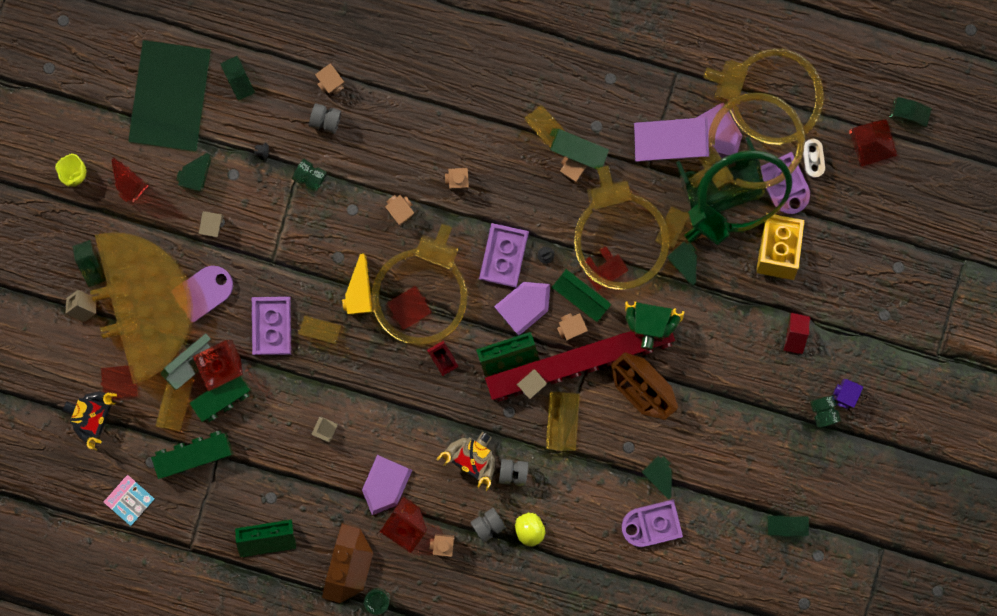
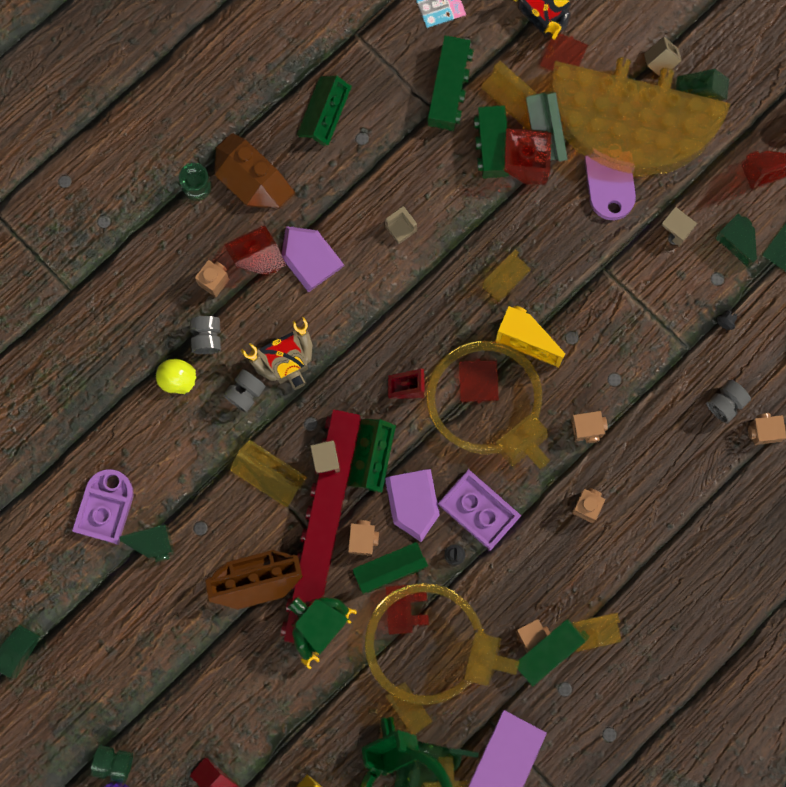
camera: 120 degrees right, 10 degrees down
(271, 325) = (538, 232): medium lavender tile -> none
(309, 175) = (677, 351): clear green wheel -> none
(685, 261) = (364, 702): clear green slope -> none

